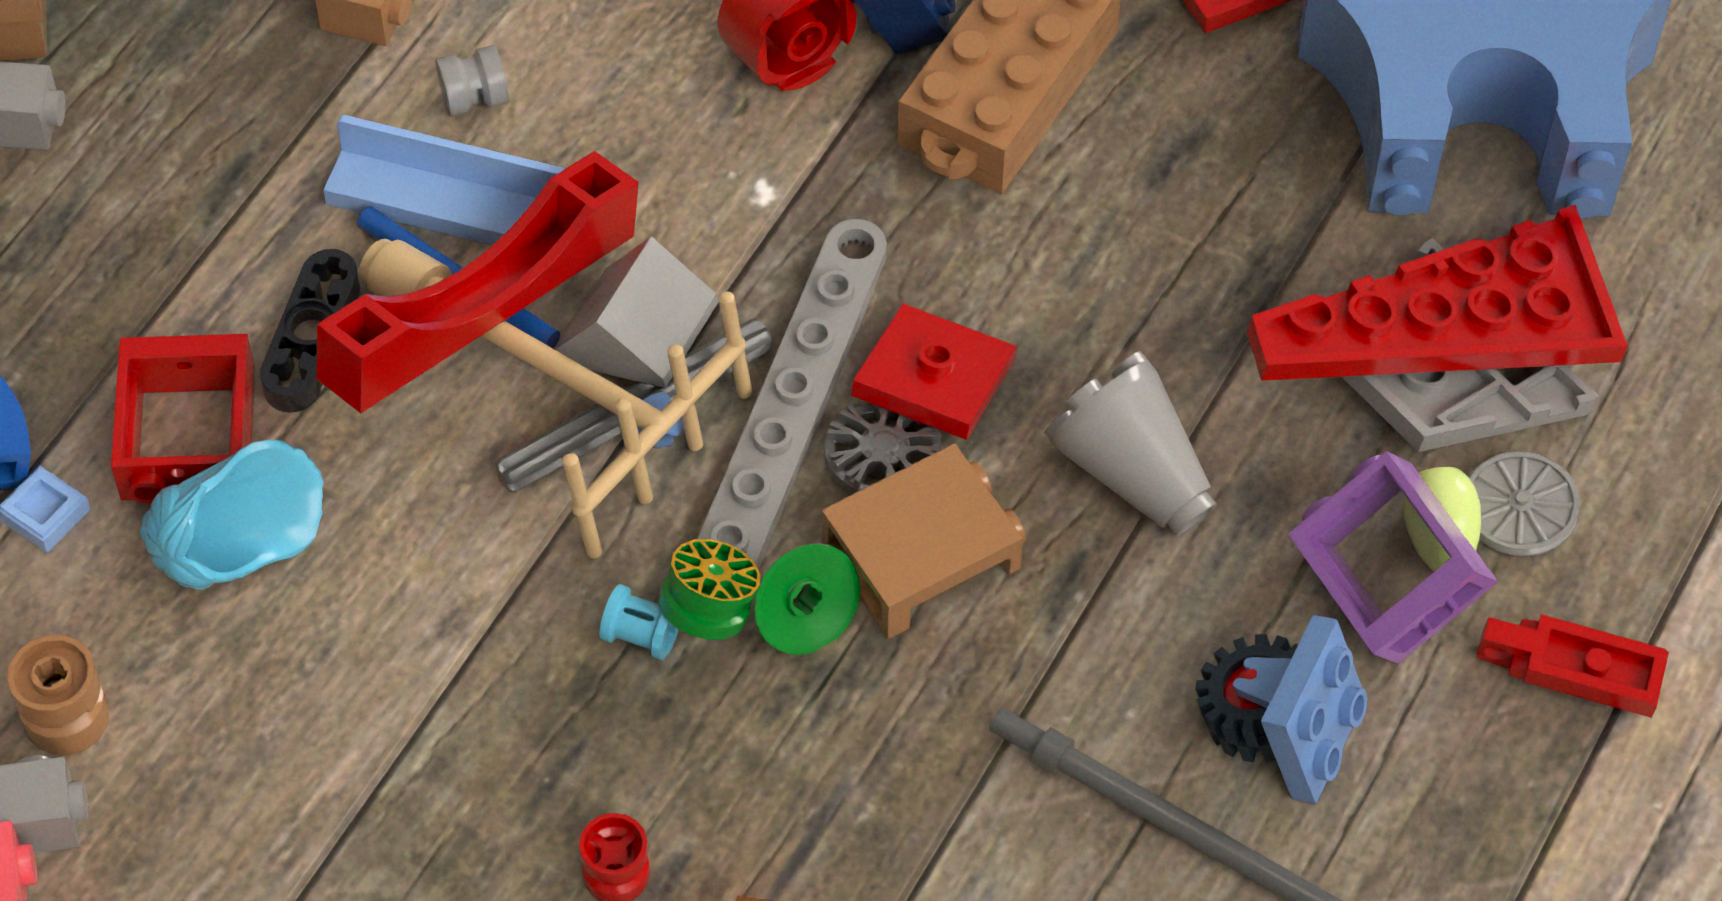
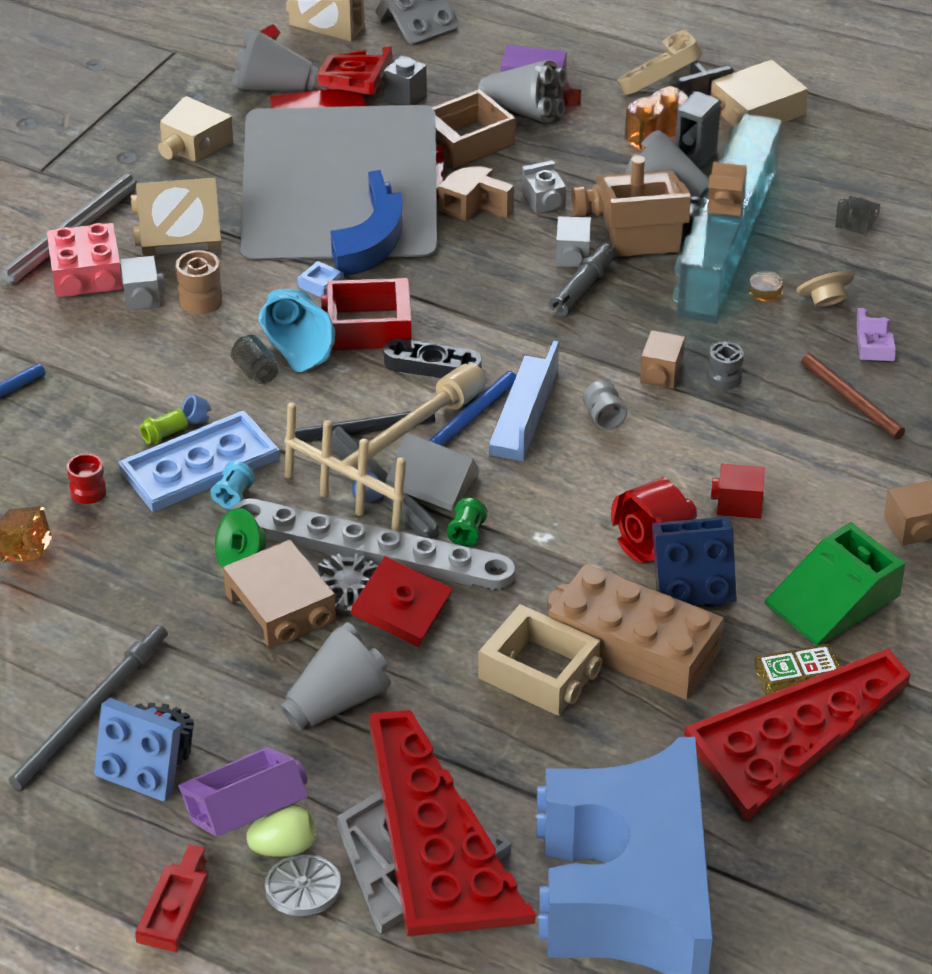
camera: 90 degrees right, 15 degrees down
(96, 88) = (590, 270): none -> dark grey pin
(290, 600) = (255, 359): none -> clear smoke brick
(393, 339) = (484, 431): red arch -> none
(438, 698) = (196, 409): none -> medium blue hinge
(465, 746) = (155, 429): none -> lime pin
(480, 447) = (356, 426): none -> black bar
(553, 691) = (196, 460): none -> light blue tile
(709, 589) = (229, 485): green wheel -> none
(751, 278) = (469, 516): none -> green bush
(1041, 232) = (500, 669): none -> tan window

